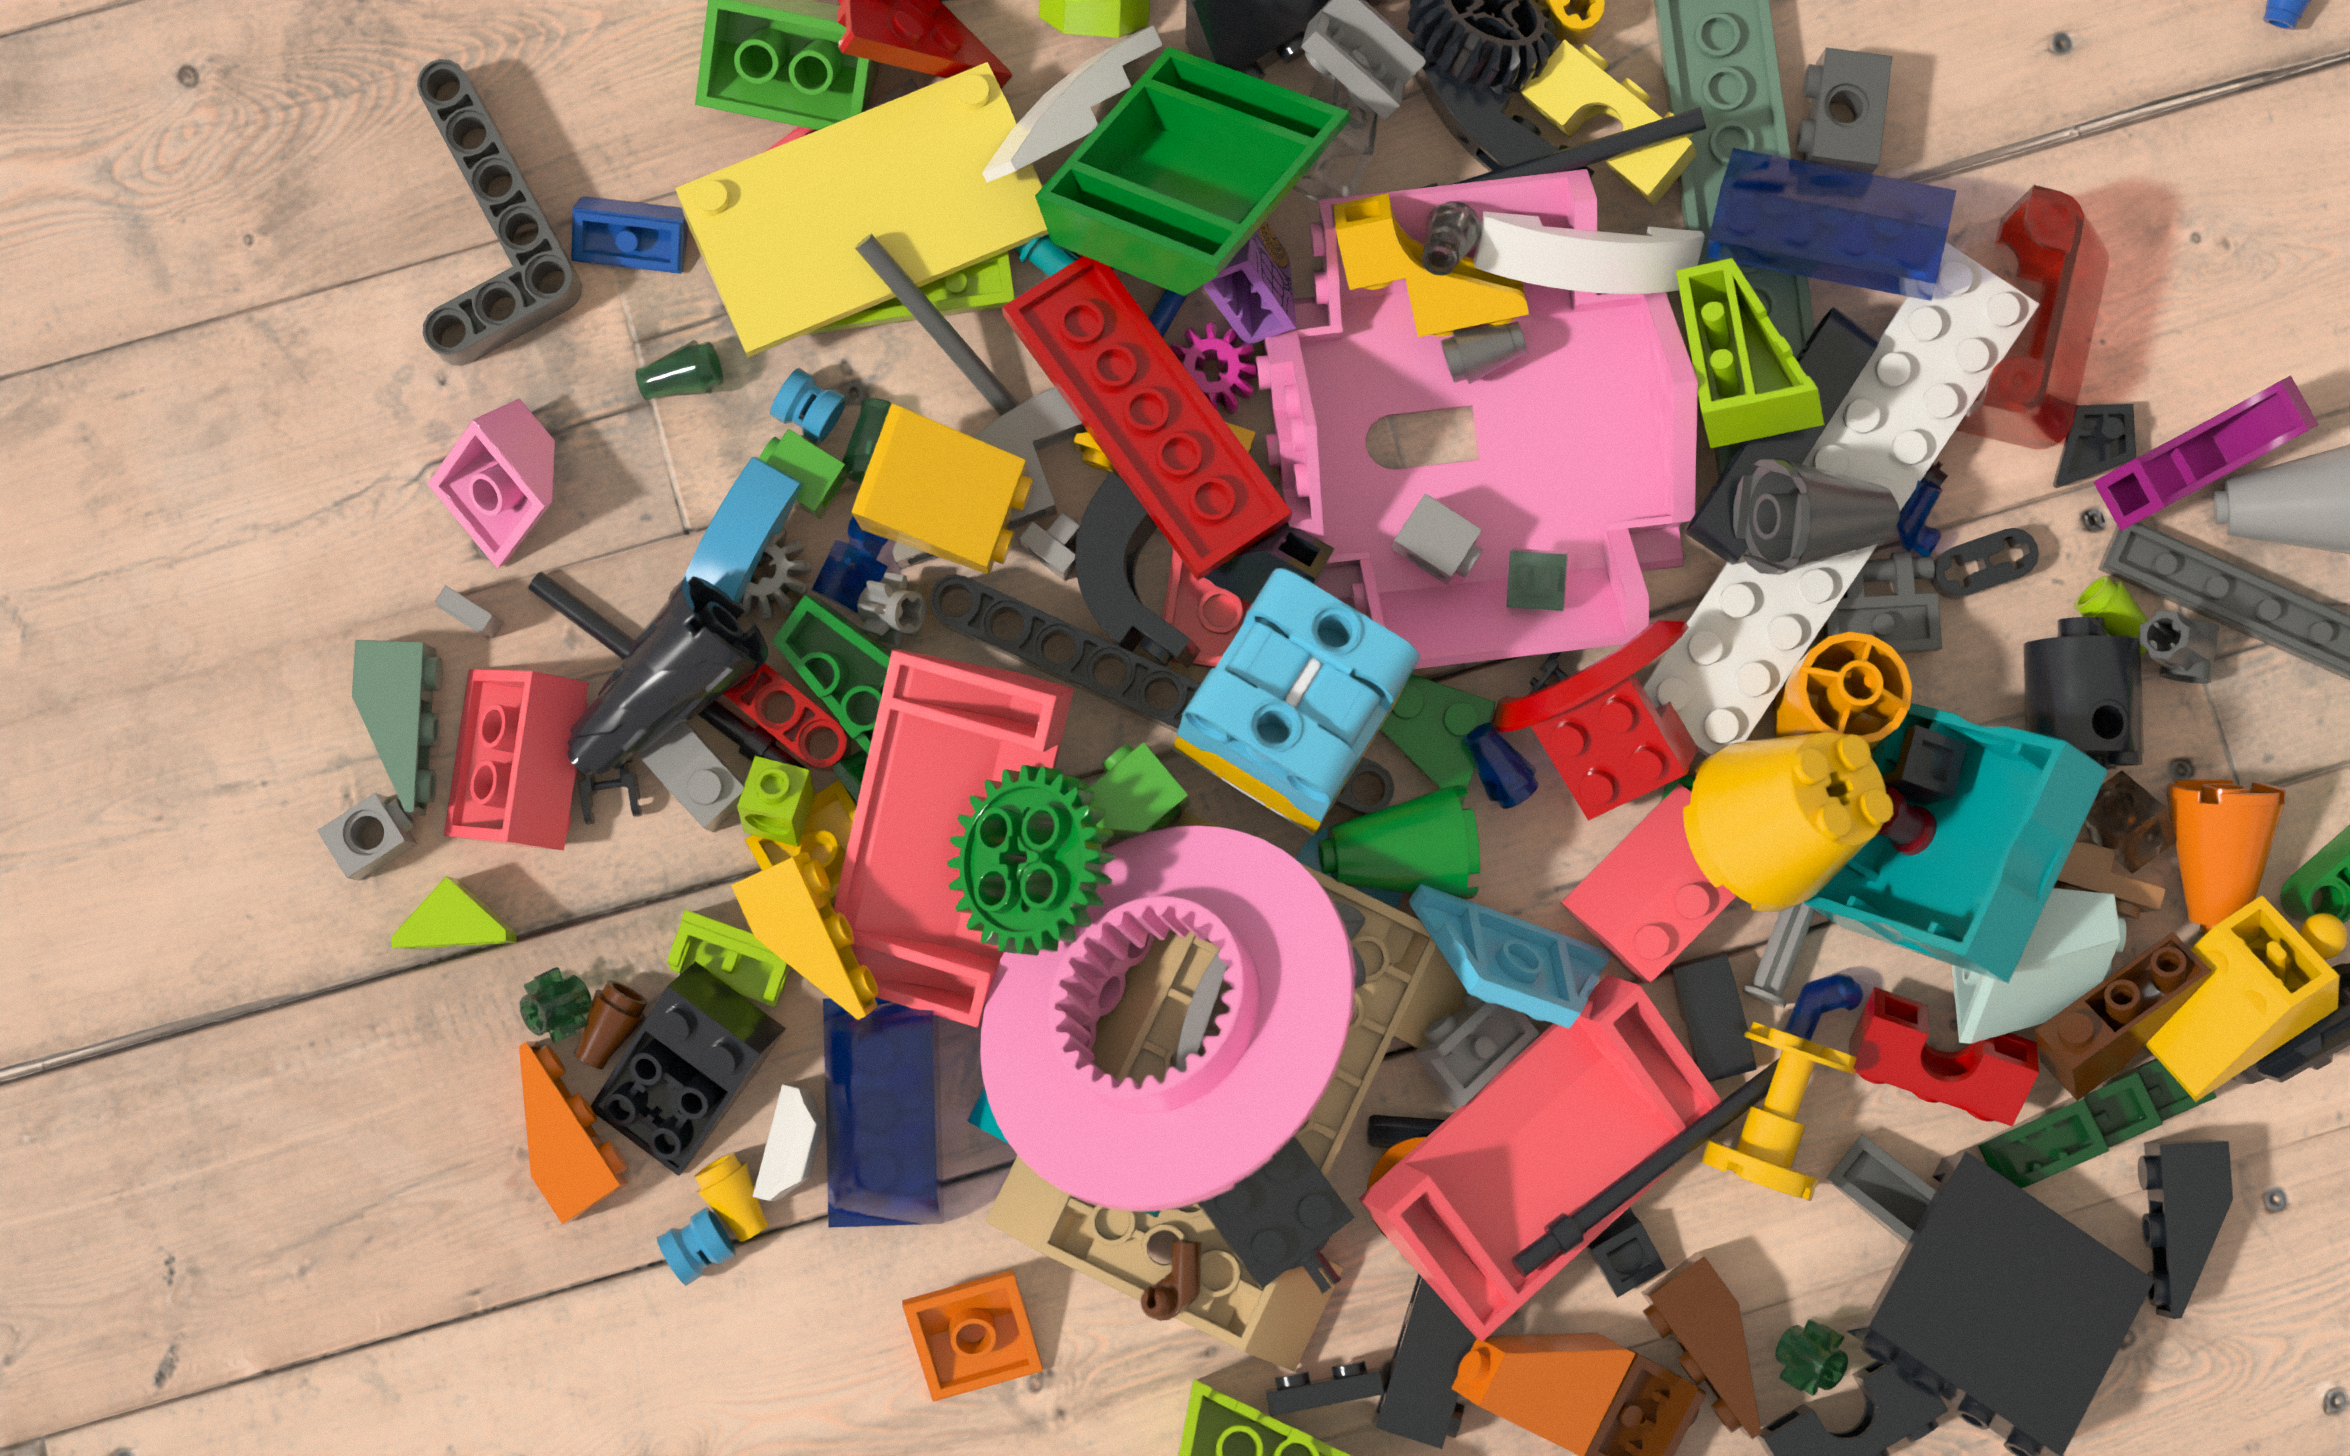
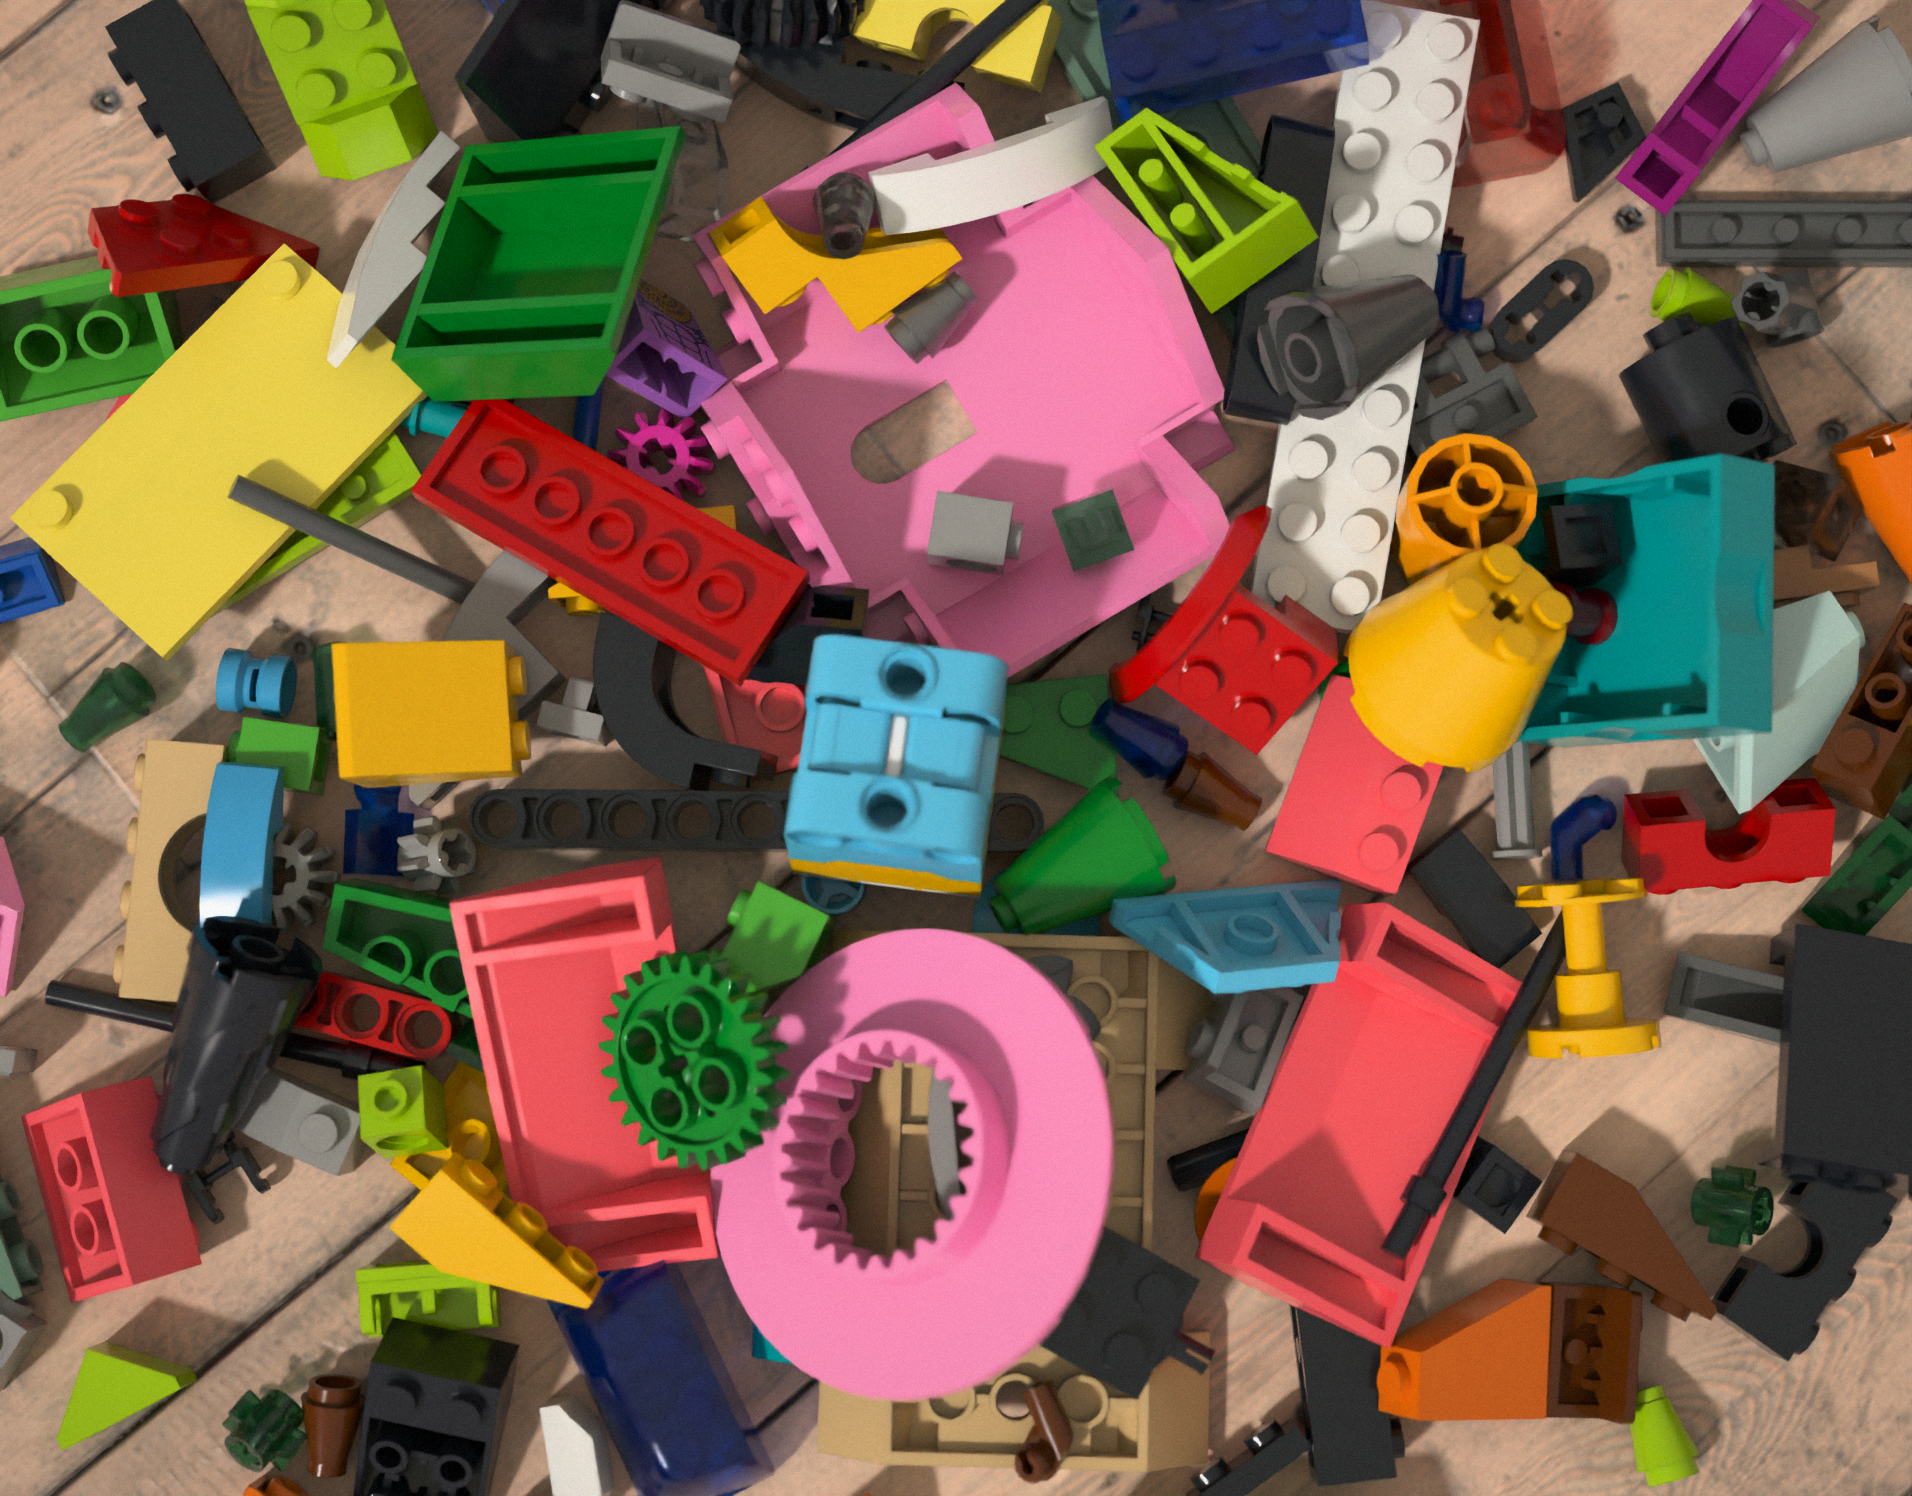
camera: 25 degrees left, 0 degrees up
(704, 473) = (173, 806): none -> tan arch
(1189, 773) = (822, 892): none -> dark azure wheel
(1538, 835) = (1211, 792): none -> reddish brown cone

